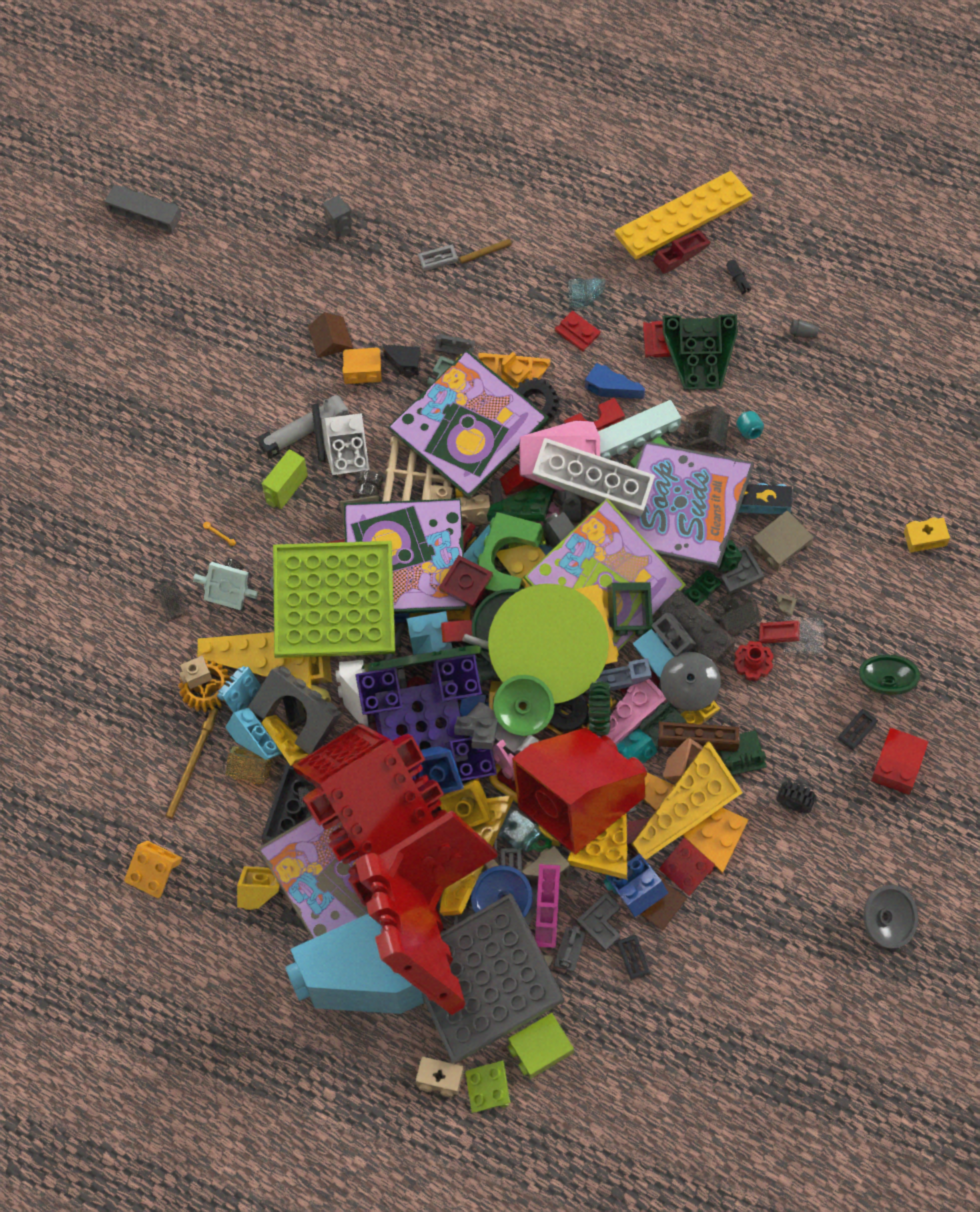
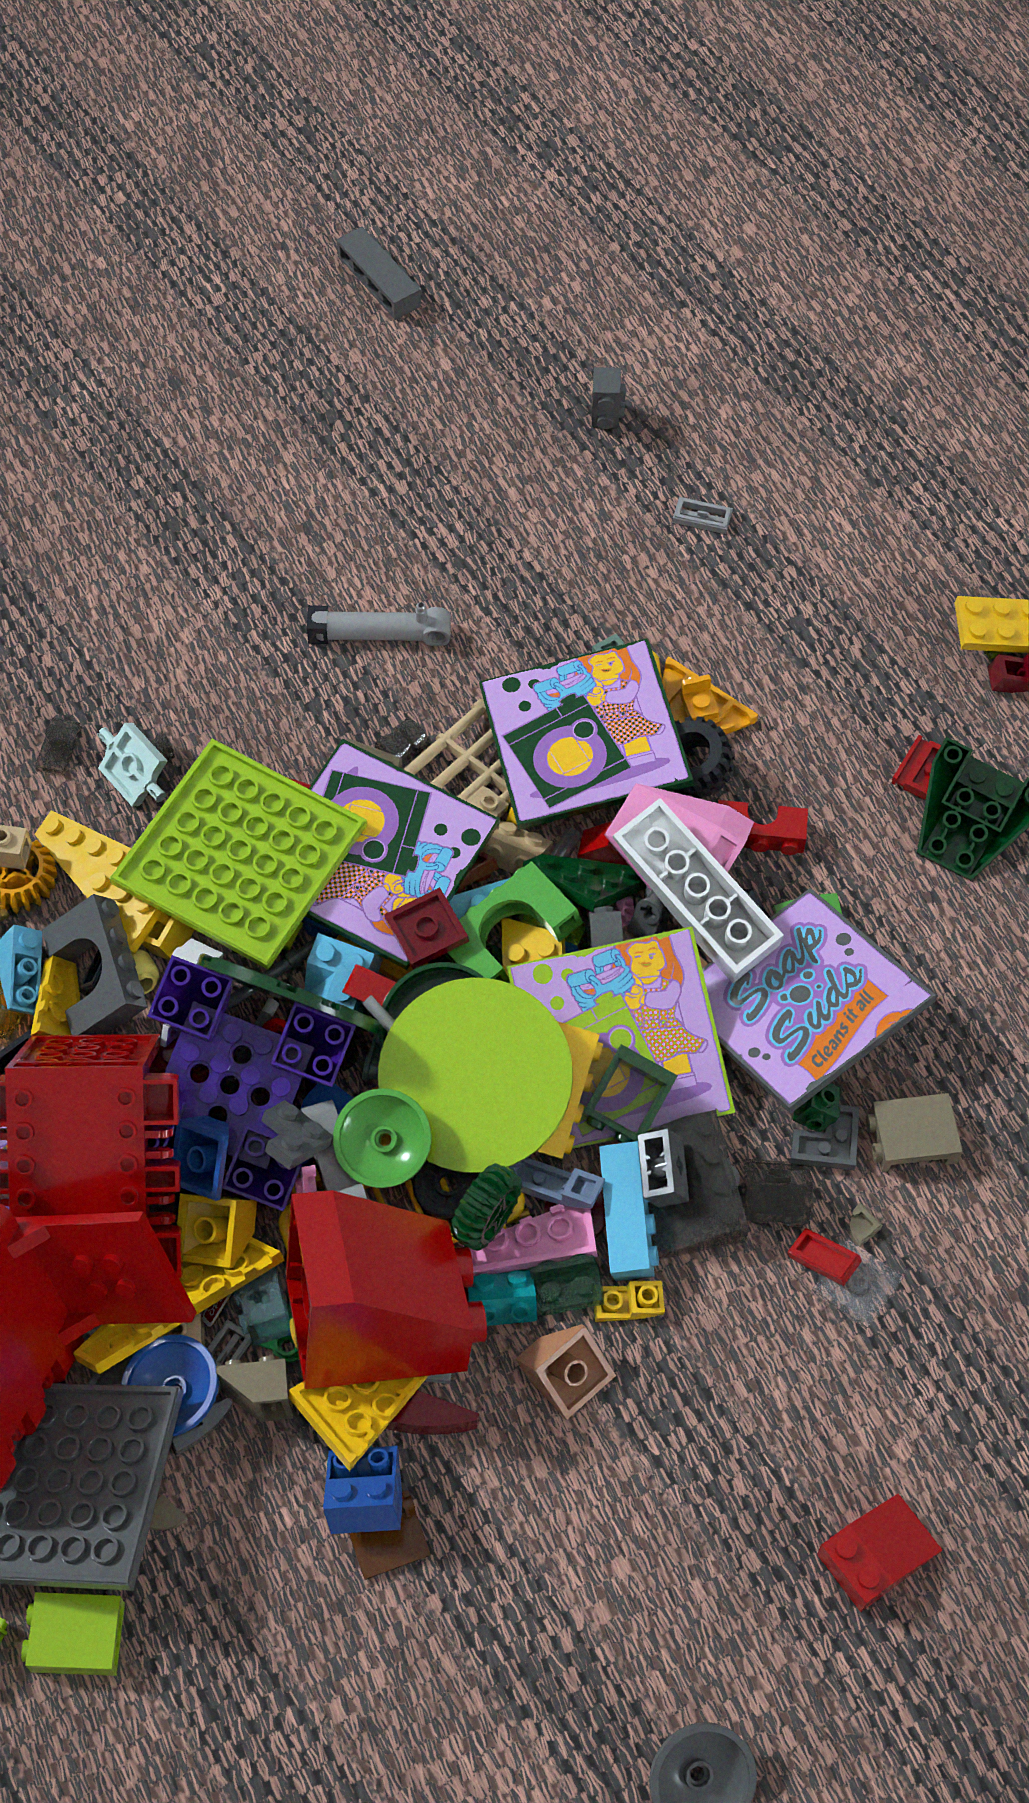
camera: 30 degrees right, 5 degrees down
(207, 525) = (172, 681): light orange hinge -> none
(241, 691) = (46, 902): medium azure hinge -> none
(284, 479) = (302, 674): lime brick -> none
(318, 432) = (389, 641): black bar -> none
(329, 335) = (496, 535): reddish brown slope -> none
(345, 443) = (413, 674): white slope -> none
(362, 365) = (506, 593): light orange bracket -> none
(403, 358) = (568, 613): black slope -> none
(453, 344) = (641, 627): dark grey hinge -> none
(484, 251) = (770, 539): pearl gold bar -> none
(547, 905) = (220, 1438): dark pink slope -> none
(570, 948) = (218, 1521): dark grey hinge -> none
(577, 331) = (822, 700): red plate -> none
(584, 292) = (865, 656): clear light blue slope -> none
(596, 920) = (279, 1503): dark grey plate -> none
(610, 384) = (813, 787): blue slope -> none
(638, 429) = (807, 866): light aqua brick -> none
(638, 974) = (287, 1621): black tile -> none
(687, 866) = (461, 1509): red hinge -> none
(690, 694) = (644, 1268): dark grey dish -> none
(696, 795) = (537, 1415): yellow wing -> none
(703, 588) = (756, 1133): dark green slope -> none
(706, 430) = (910, 922): clear smoke slope -> none
(713, 836) = (527, 1460): light orange wing -> none
(721, 737) = (614, 1337): reddish brown slope -> none
(748, 757) = (653, 1396): dark green hinge -> none
(750, 425) = (976, 949): teal head -> none
(753, 660) = (759, 1275): red plant -> none
(766, 499) = (928, 1060): black brick -> none
(796, 797) = (684, 1508): black tyre -> none
(847, 742) = (819, 1475): black tile -> none
(889, 674) = (943, 1415): dark green dish -> none

